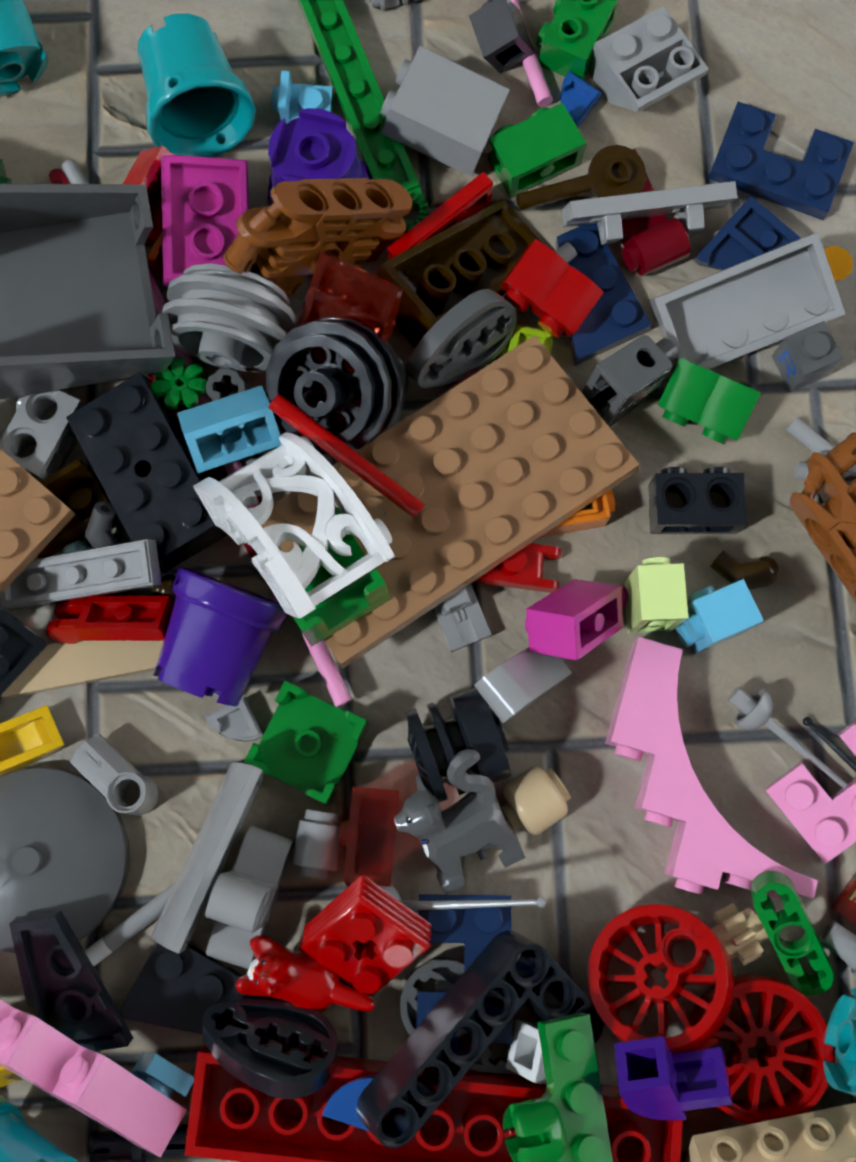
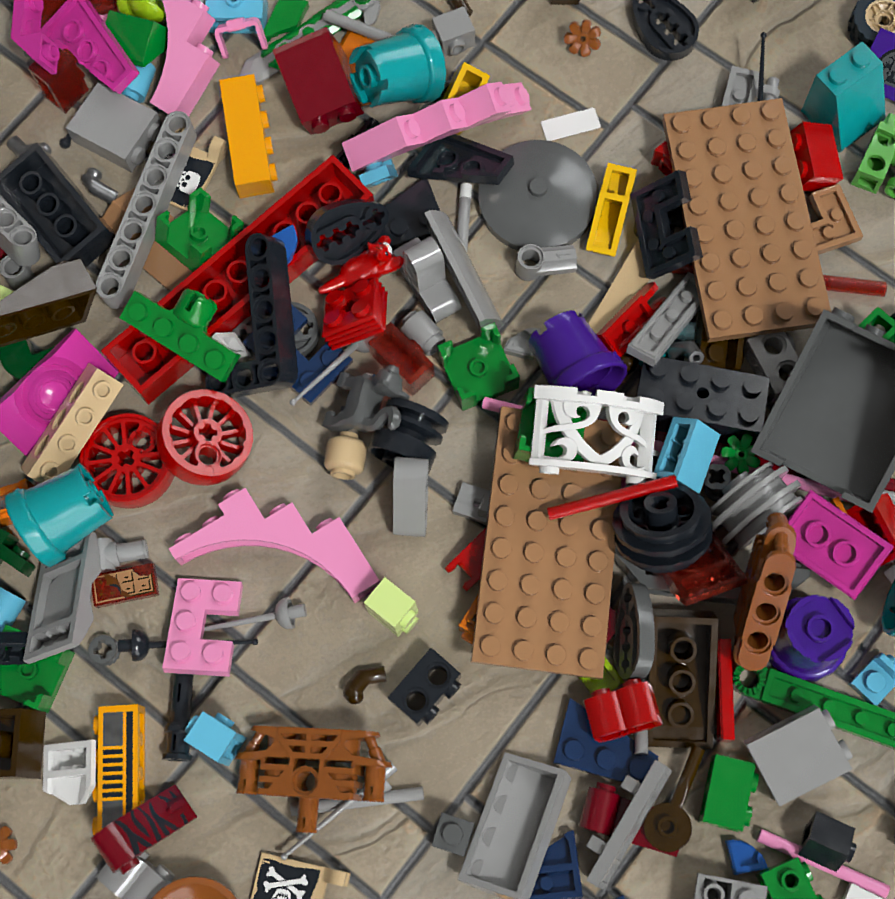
camera: 135 degrees right, 5 degrees down
(575, 618) = (418, 553): dark pink brick -> none
(629, 377) = (533, 699): dark grey torso -> none
(668, 1084) = (156, 390): dark purple brick -> none
(708, 400) = (478, 748): green brick -> none
(718, 616) = (351, 631): medium azure brick -> none
(740, 933) = (187, 499): tan gear -> none
(791, 951) = (172, 532): green beam -> none

